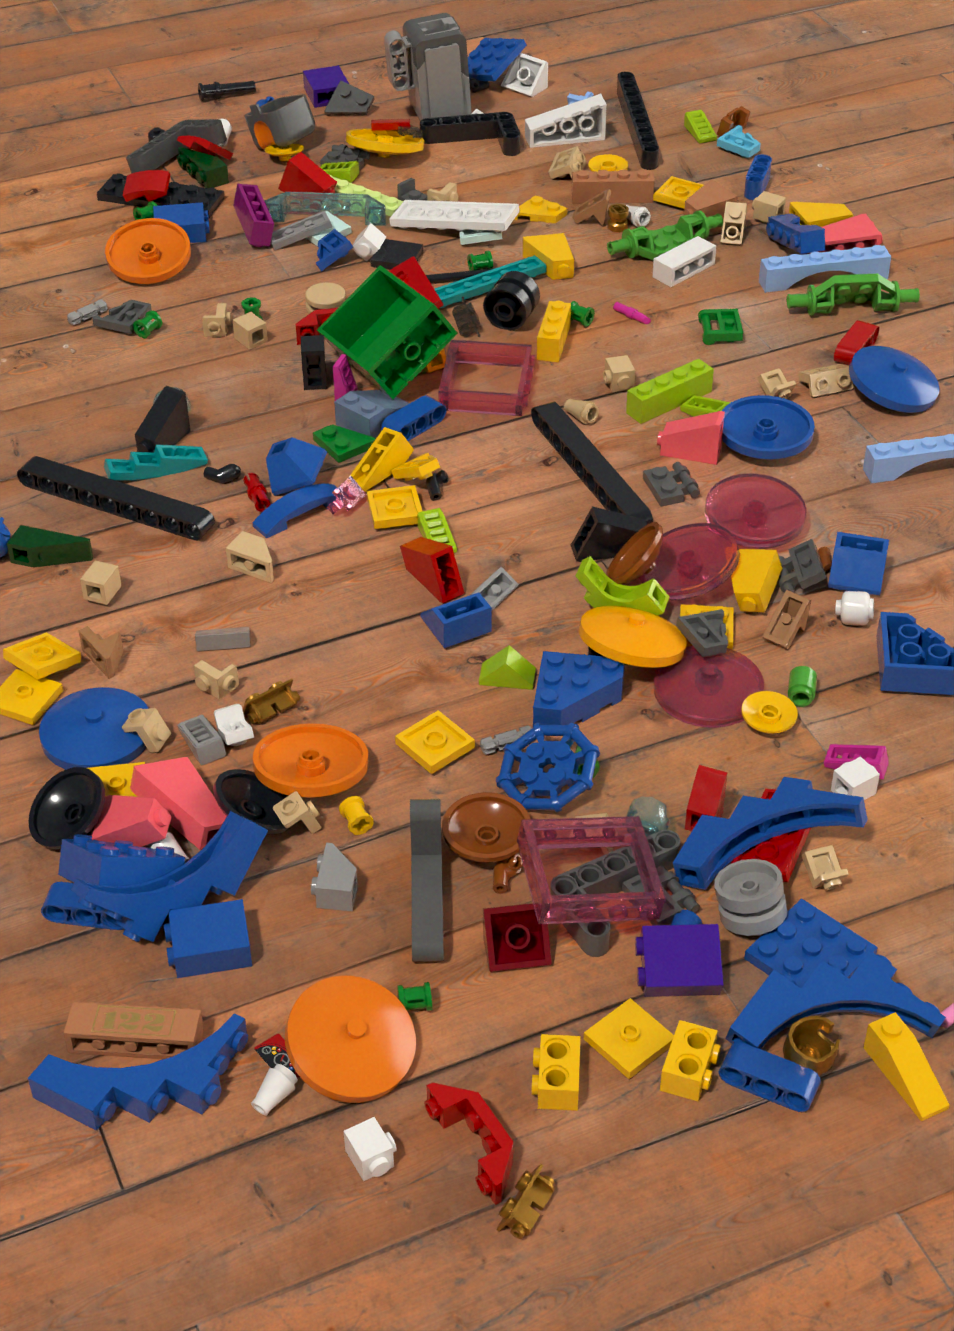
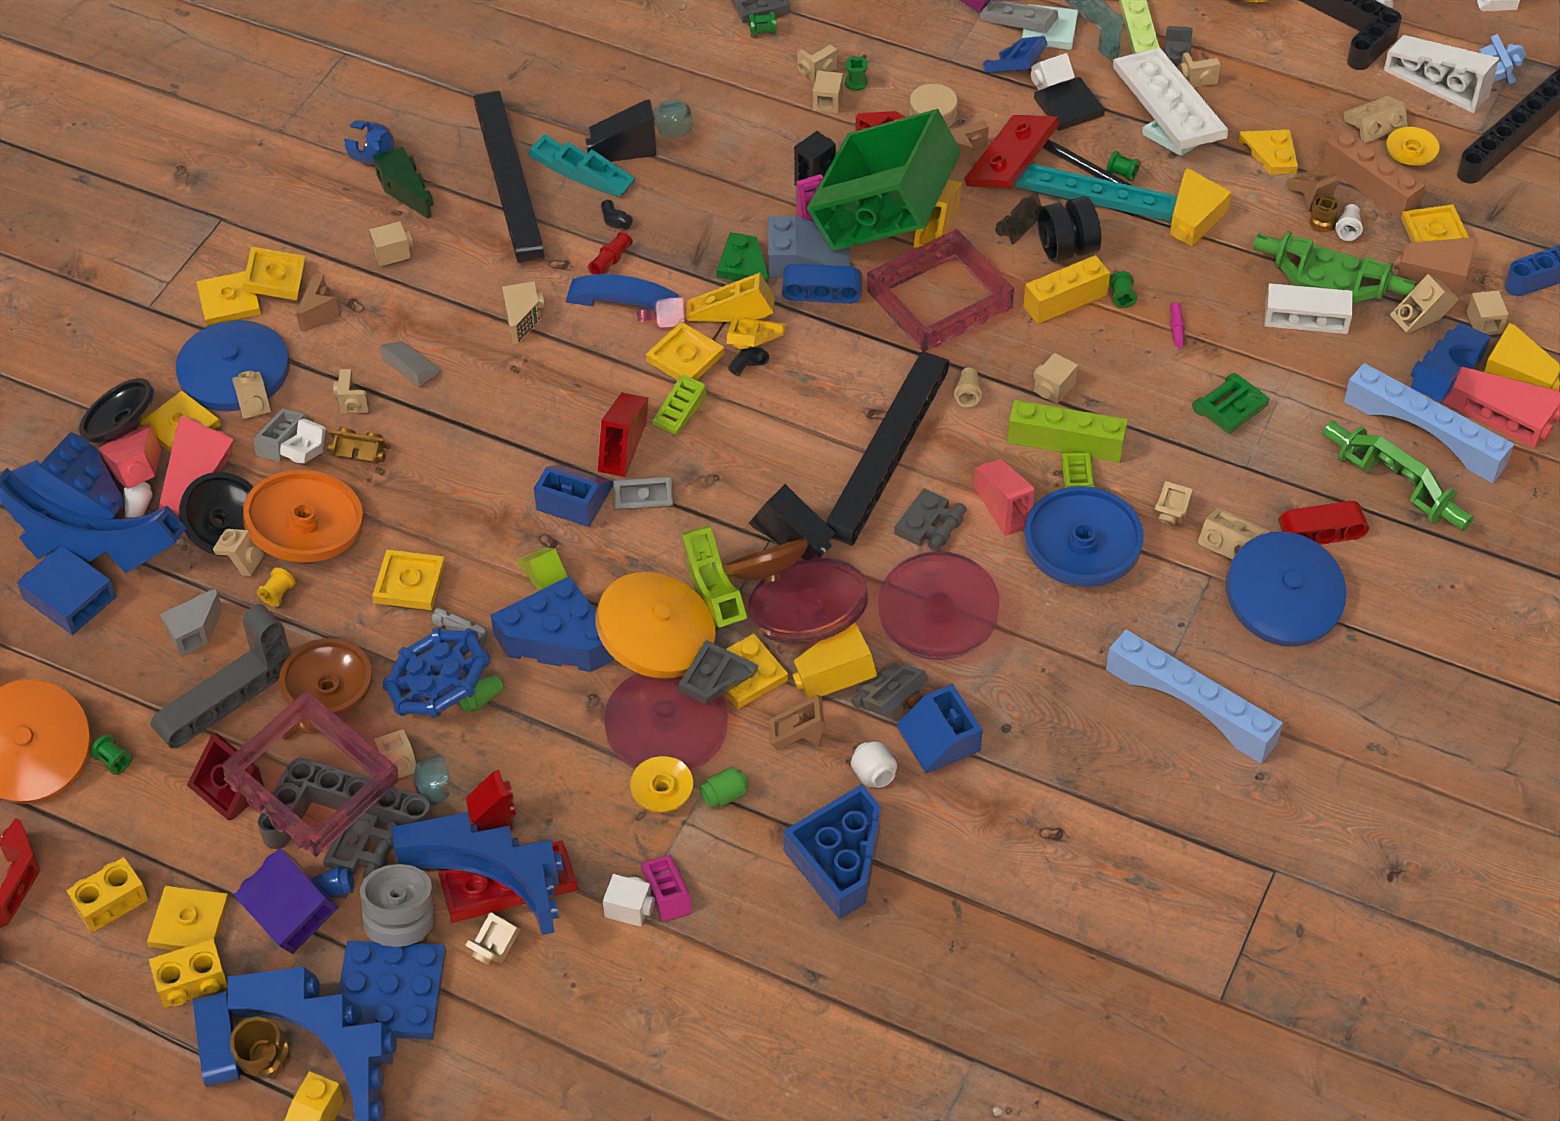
camera: 50 degrees right, 10 degrees up
(293, 465) = (659, 251): blue slope -> none

